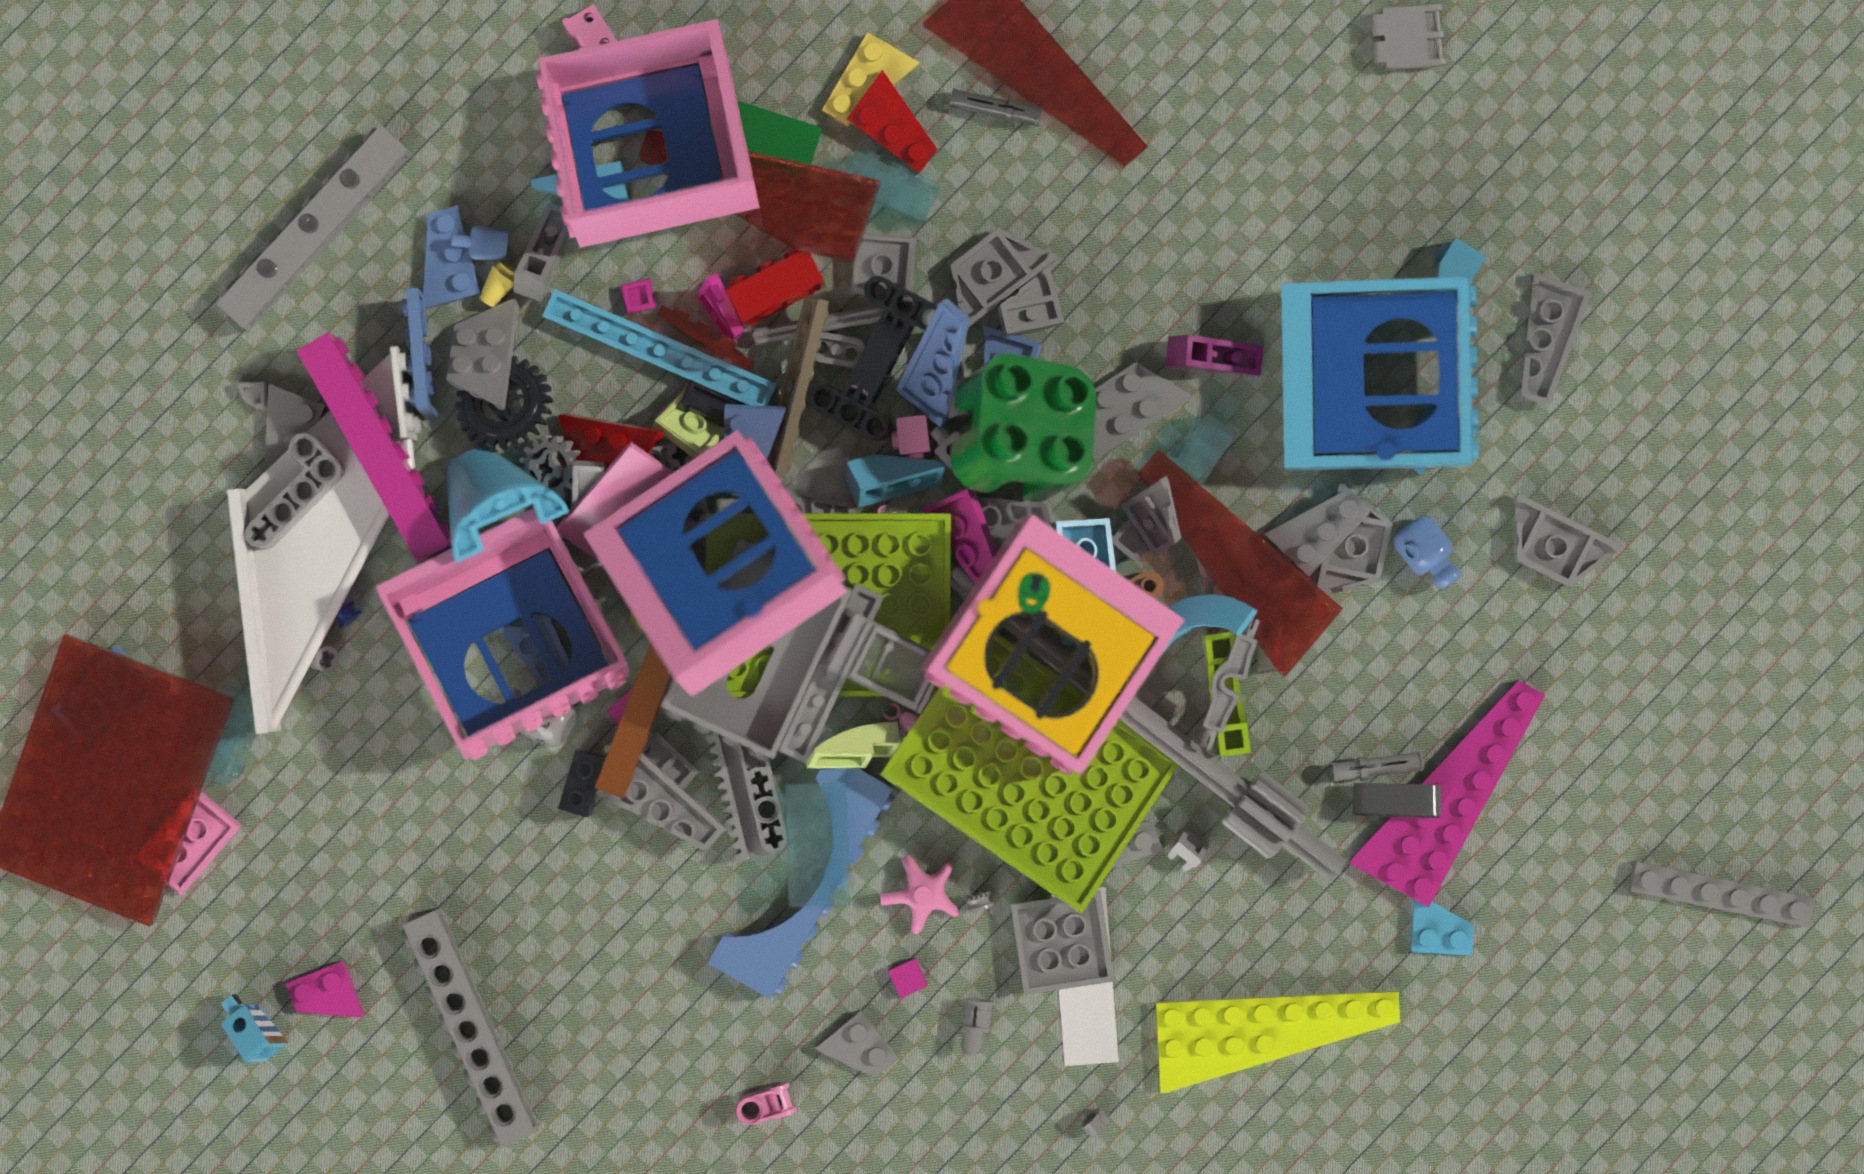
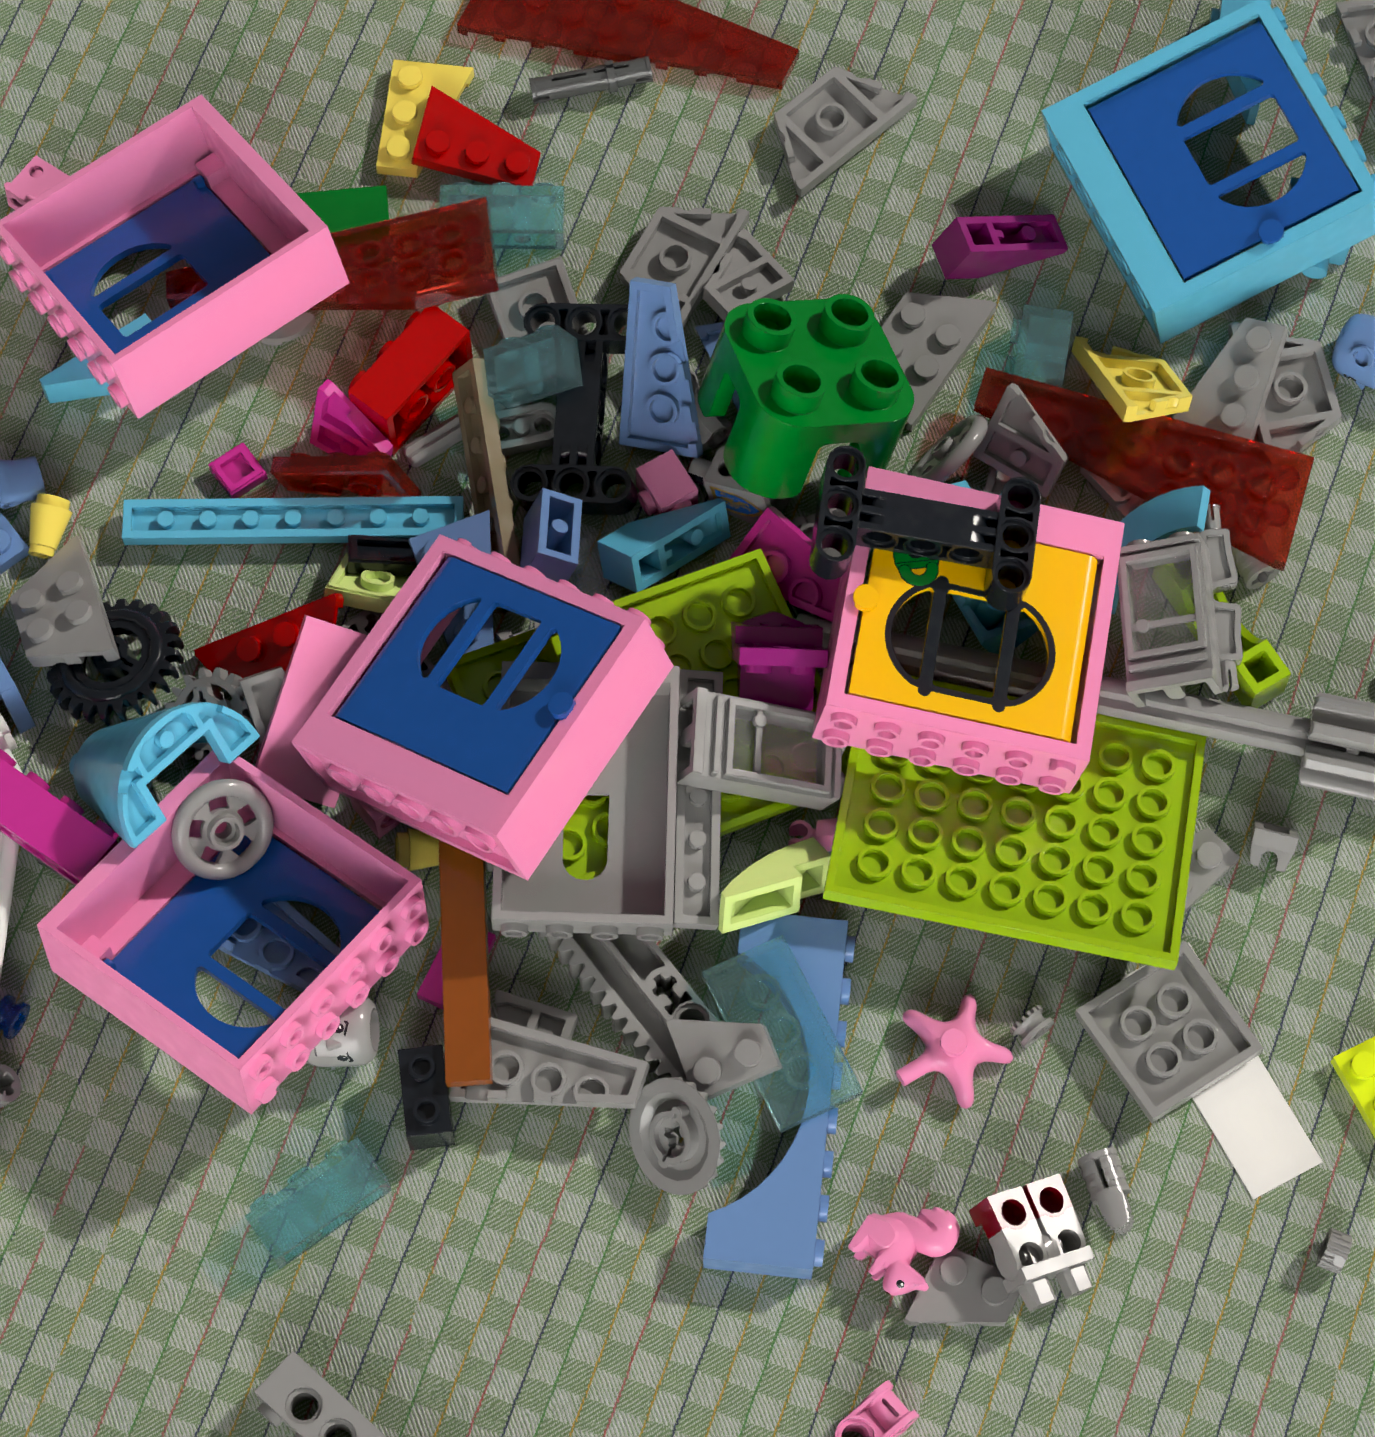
camera: 25 degrees left, 20 degrees down
(489, 818) = (317, 1201): none -> clear light blue brick
(522, 559) = (197, 807): none -> light grey plate
(542, 255) = (92, 466): light grey slope -> none
(721, 865) = (669, 1164): none -> light grey gear
(772, 845) = (723, 1053): none -> light grey wing
(816, 448) = (552, 534): none -> medium blue brick
(832, 999) = (896, 1240): none -> bright pink animal
(855, 321) = (532, 366): none -> clear light blue brick
(907, 977) = (985, 1170): dark pink tile -> none
(915, 1039) = (1036, 1241): none -> light grey hips
(923, 601) = (777, 659): none -> magenta piece
(1047, 578) = (925, 528): none -> black beam
(1105, 499) = (952, 449): none -> light grey plate
(1145, 214) = (834, 123): none -> light grey wing
(1187, 687) = (1168, 616): none -> light grey door
(1251, 501) = (1133, 382): none -> light yellow wing

